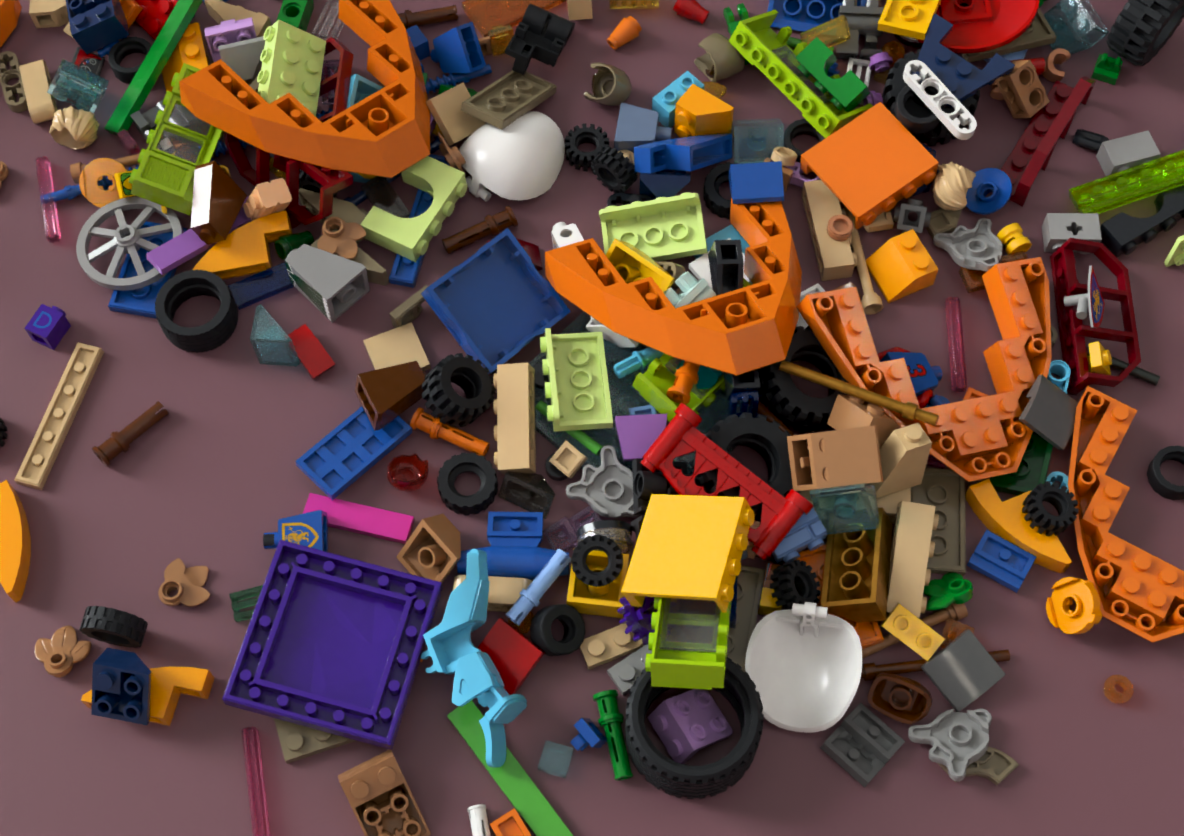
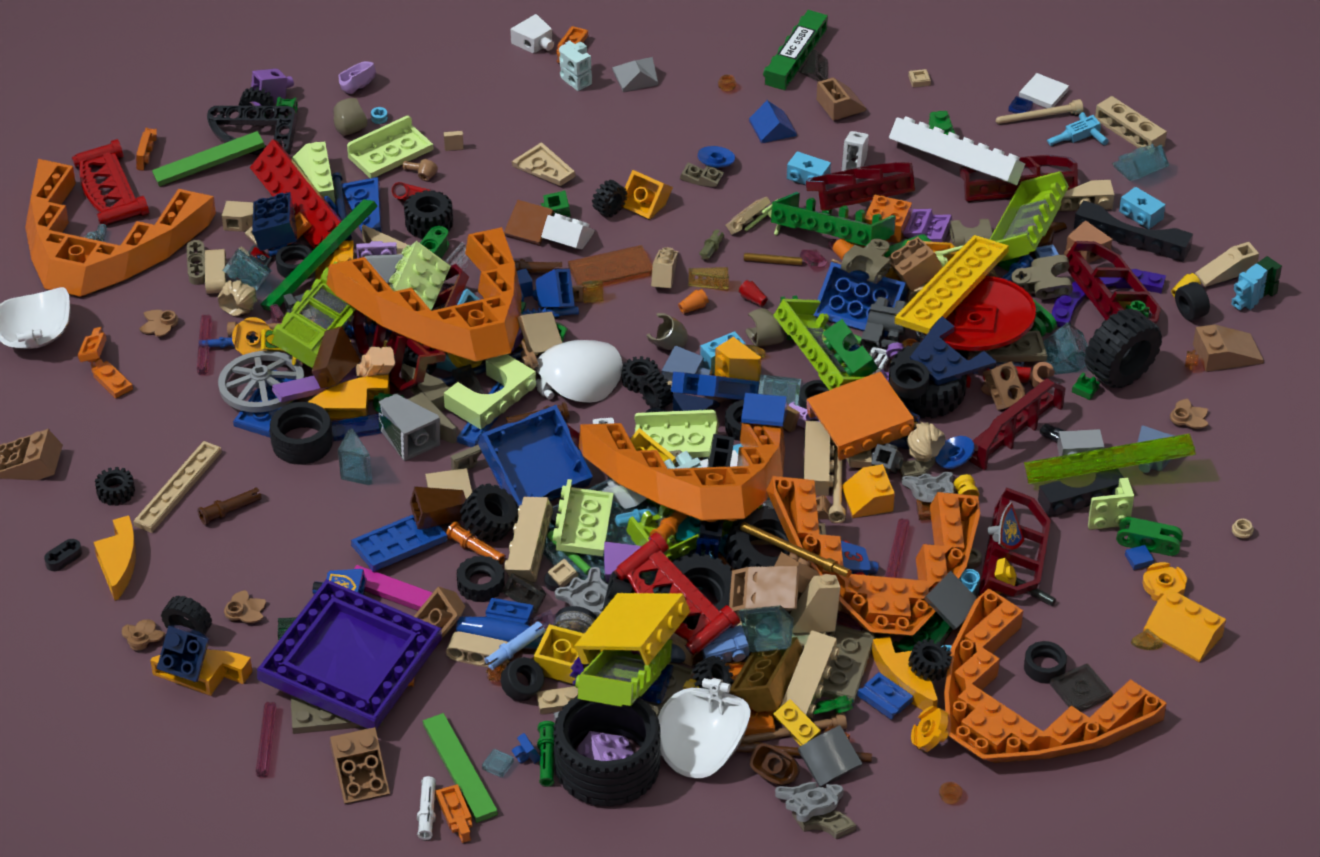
camera: 10 degrees right, 20 degrees down
(48, 326) = (183, 426): dark purple brick -> none
(310, 351) = (383, 476): red slope -> none
(342, 241) = (427, 398): medium nougat plate -> none
(407, 472) = (435, 563): clear red hair -> none
(474, 670) = (446, 685): medium azure piece -> none
(508, 98) = (586, 328): dark tan tile -> none
(511, 654) = (477, 691): red tile -> none
(538, 37) = (621, 291): black plate -> none
(580, 567) = (561, 617): black tyre -> none
(785, 155) = (796, 402): tan tile -> none
(829, 33) = (860, 322): clear yellow tile -> none
(840, 227) = (824, 454): nougat tile -> none
(862, 744) = (738, 793): dark grey slope -> none
(943, 97) = (921, 373): white beam -> none
(1061, 226) = (1019, 483): light grey brick -> none

